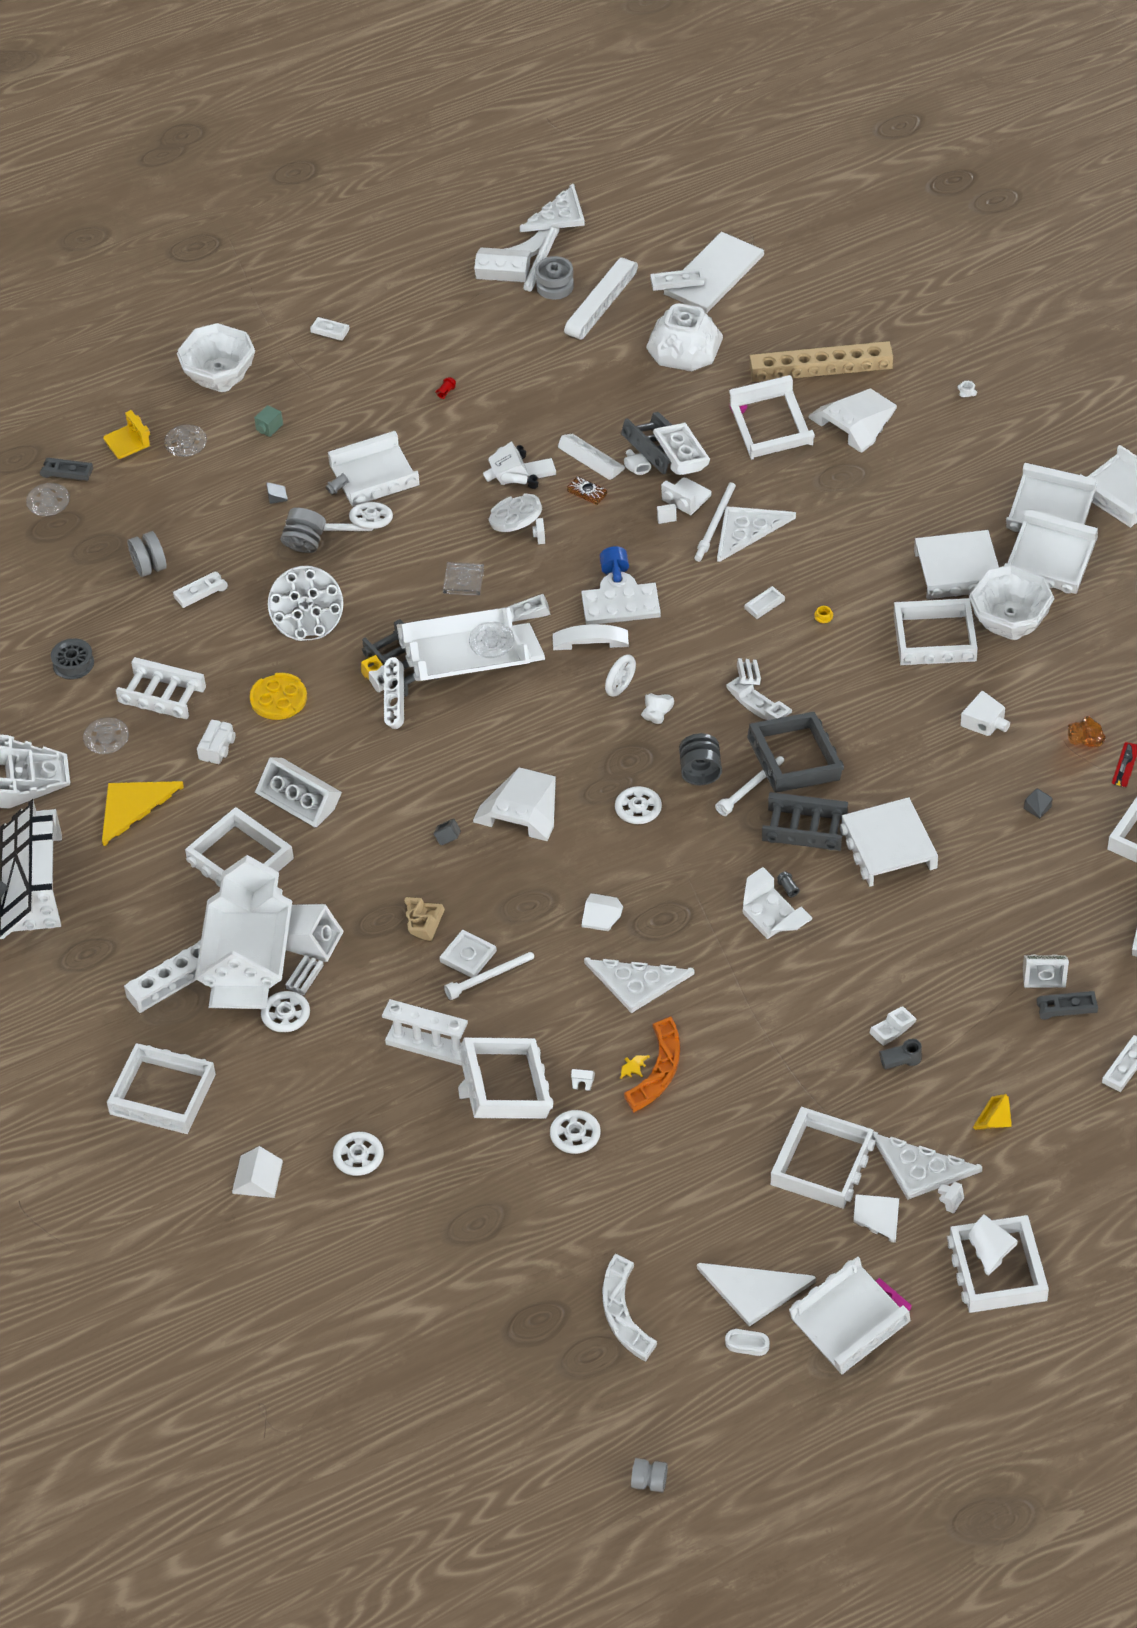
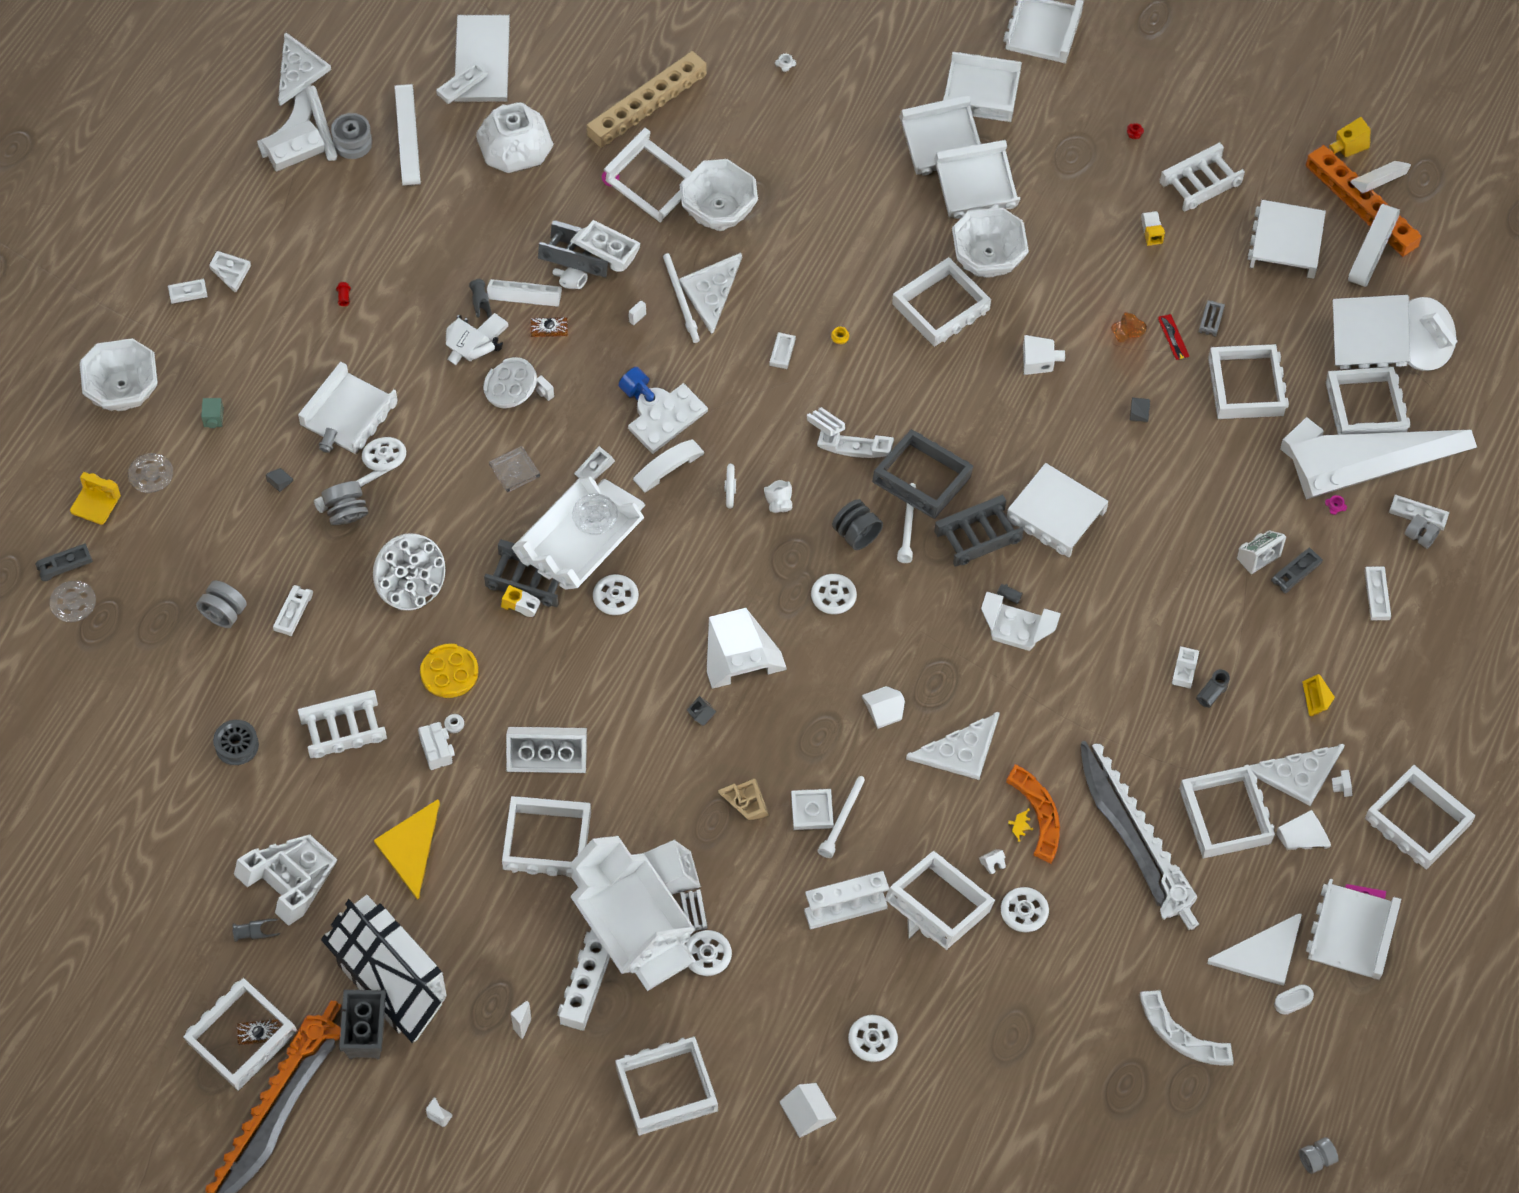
camera: 40 degrees left, 10 degrees up
(94, 970) = (521, 1018): none -> white slope
(106, 735) = (331, 781): clear plate -> none
(246, 735) = (454, 728): none -> white plate
(376, 328) = (230, 269): none -> white wing
(397, 692) = (552, 612): white beam -> none
(462, 698) = (611, 608): none -> white plate
(550, 441) = (480, 297): none -> dark grey piece
(685, 495) = (638, 286): white bracket -> none
(723, 1185) = (1174, 885): none -> piece
(807, 453) = (718, 194): none -> white rock
(858, 415) = (717, 132): white wedge -> none
(955, 562) = (911, 229): white panel -> none
(990, 1243) = (1410, 804): white slope -> none

